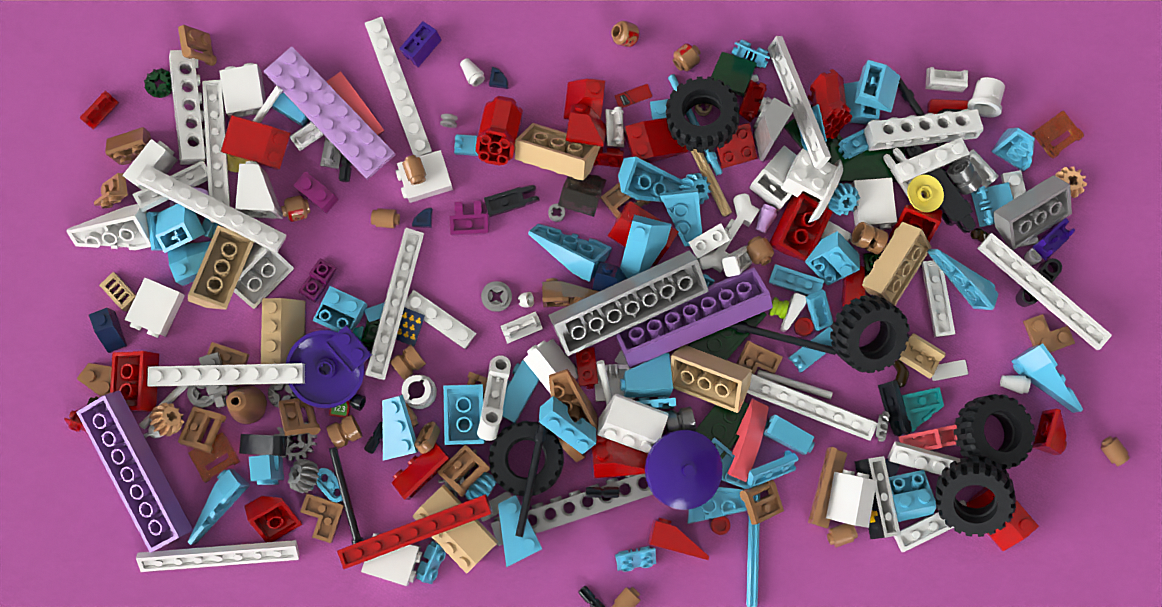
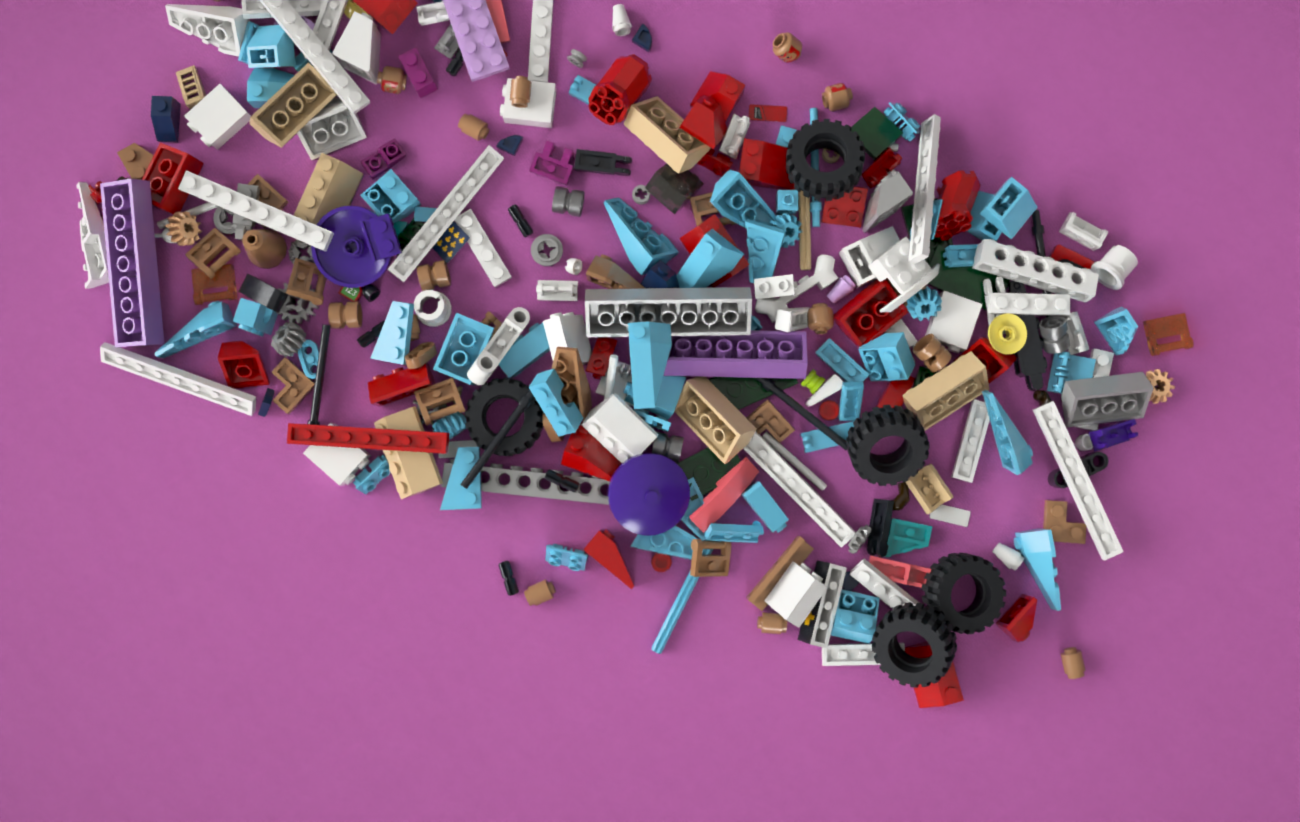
camera: 25 degrees right, 5 degrees up
(88, 466) = (92, 239): none -> white wedge
(307, 541) = (267, 400): none -> dark blue tile
(464, 282) = (518, 218): none -> black piece
(496, 246) = (568, 201): none -> flat silver wheel
(630, 346) = (649, 354): none -> medium azure wedge
(685, 164) = (786, 202): none -> medium azure brick

